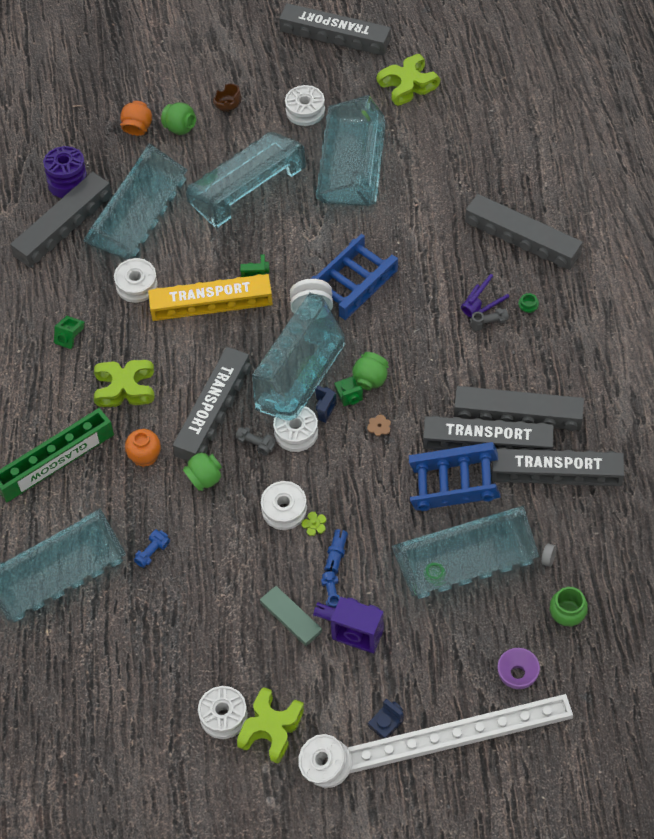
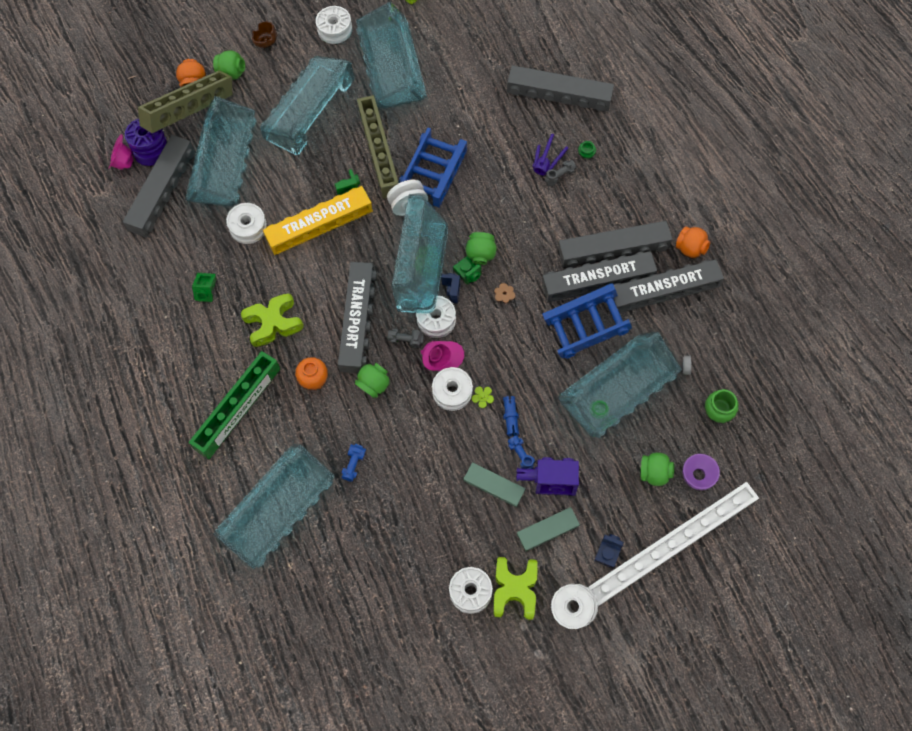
camera: 20 degrees left, 10 degrees up
(35, 181) = (121, 155): none -> dark pink piece
(117, 141) = (184, 101): none -> olive brick
(286, 466) = (442, 355): none -> dark pink piece
(301, 235) = (377, 144): none -> olive brick
(330, 678) = (548, 529): none -> sand green tile
(470, 650) = (656, 469): none -> bright green piece
(605, 428) = (693, 242): none -> orange piece

